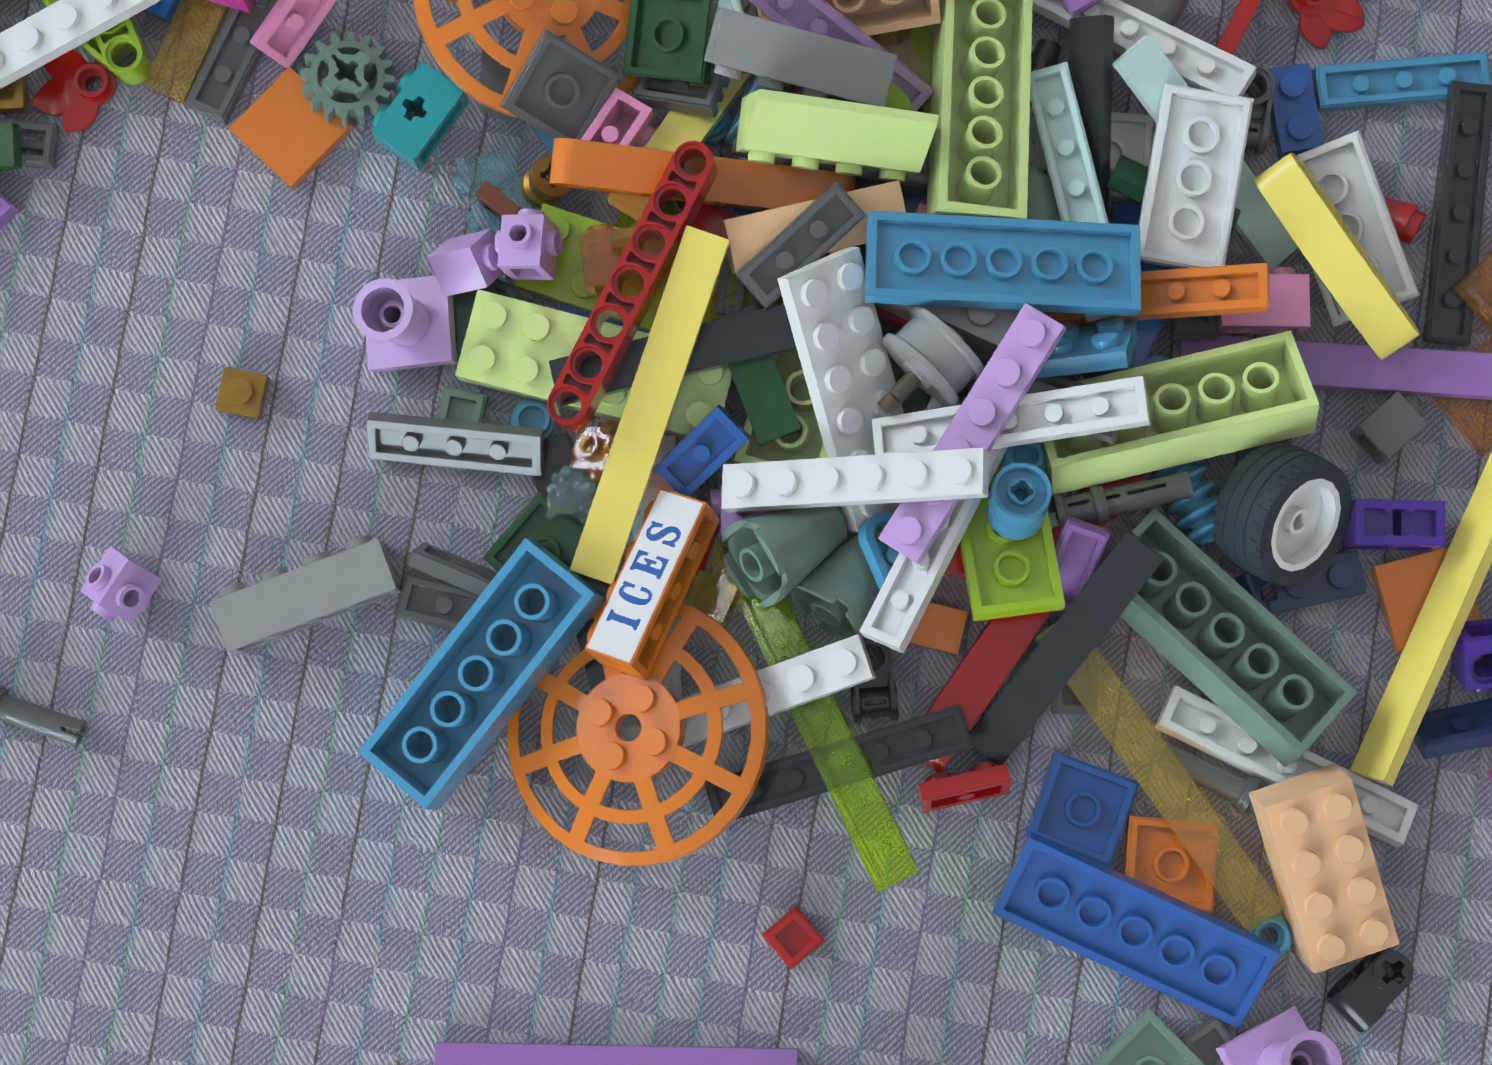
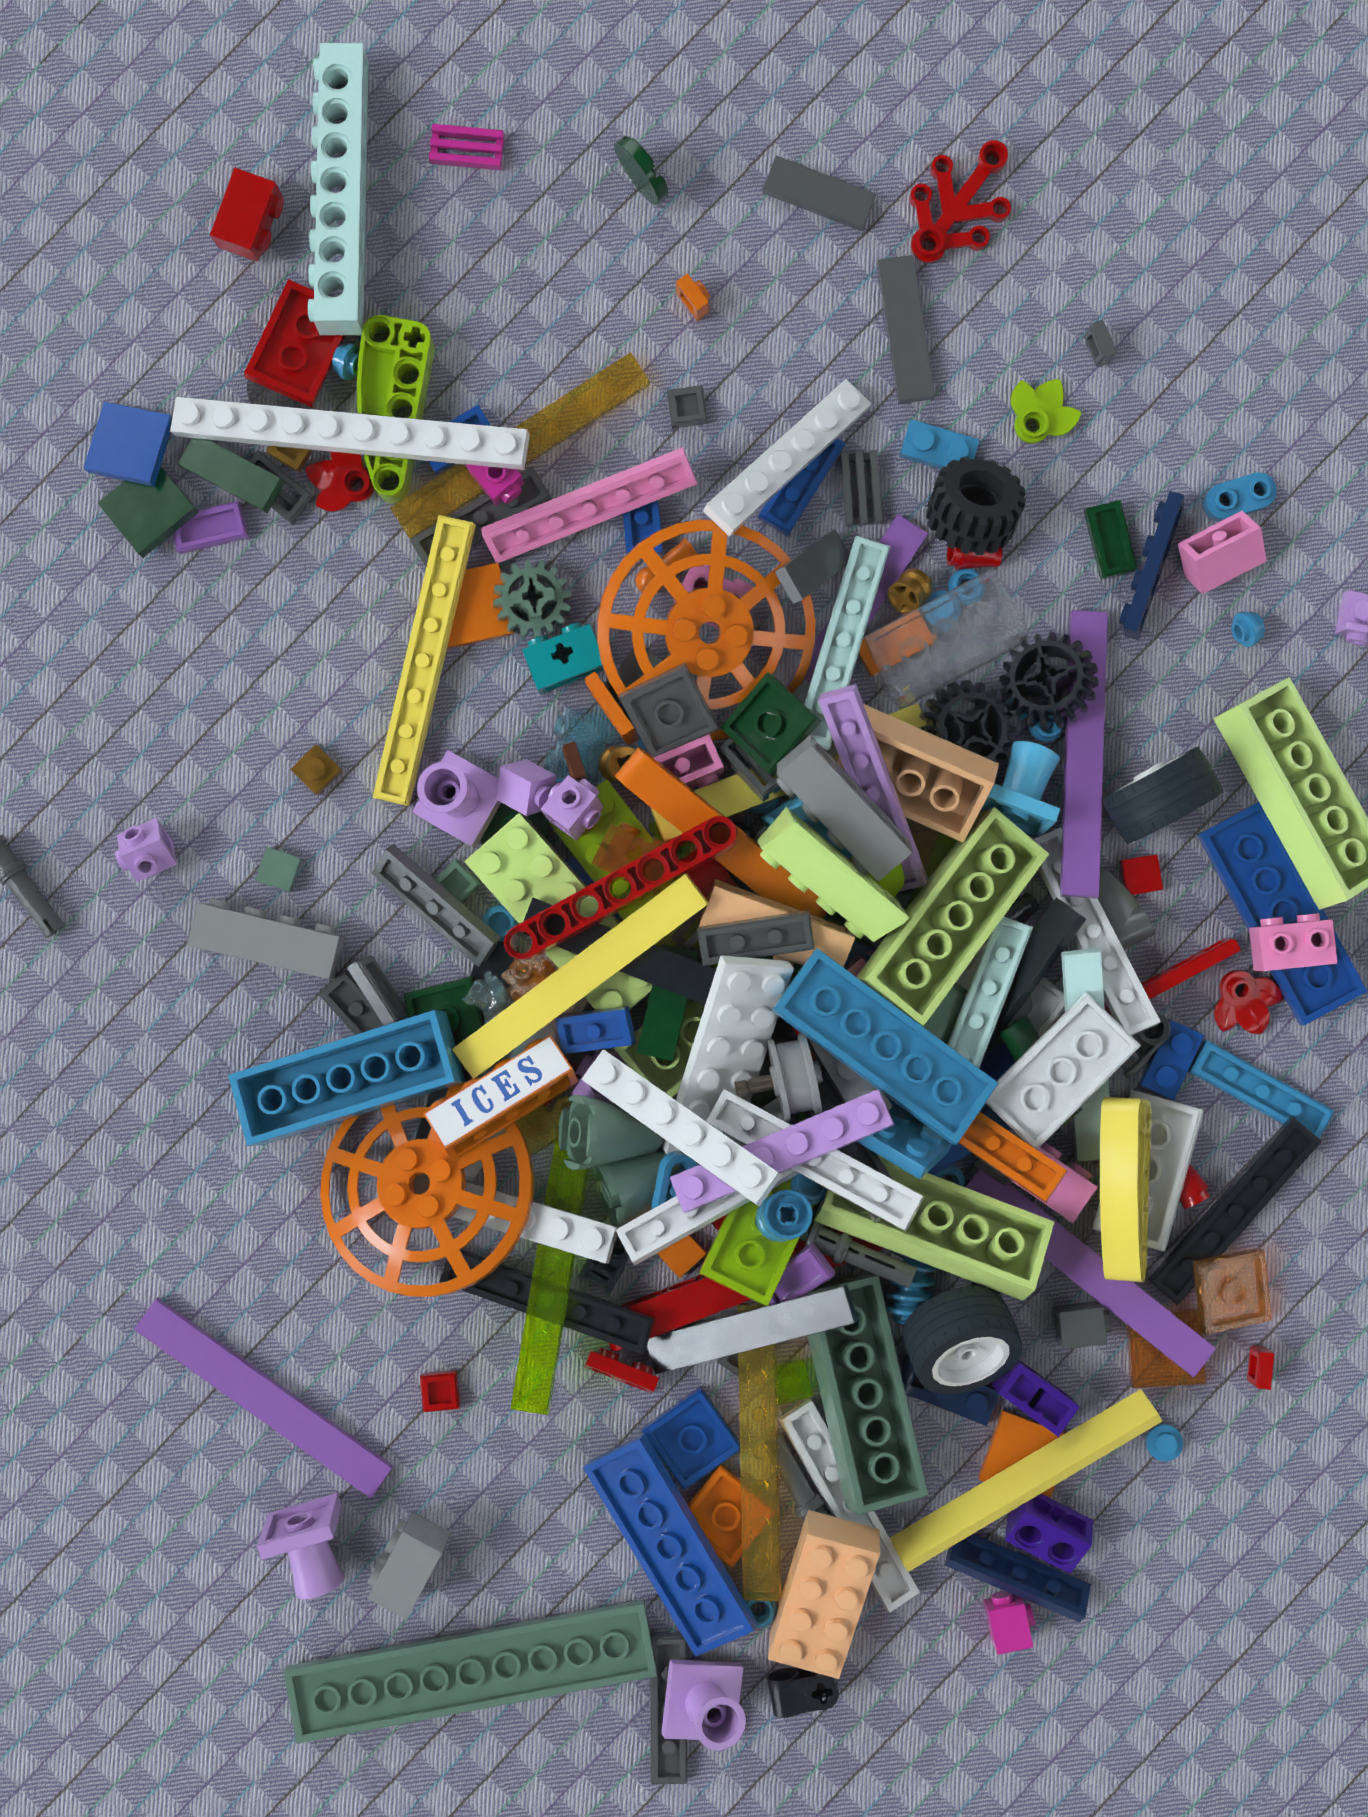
camera: 35 degrees right, 5 degrees up
(270, 518) = (278, 869): none -> sand green tile
(279, 211) = (424, 660): none -> light yellow tile
(501, 132) = (611, 709): none -> orange tile
(1145, 681) = (793, 1382): none -> clear neon green tile

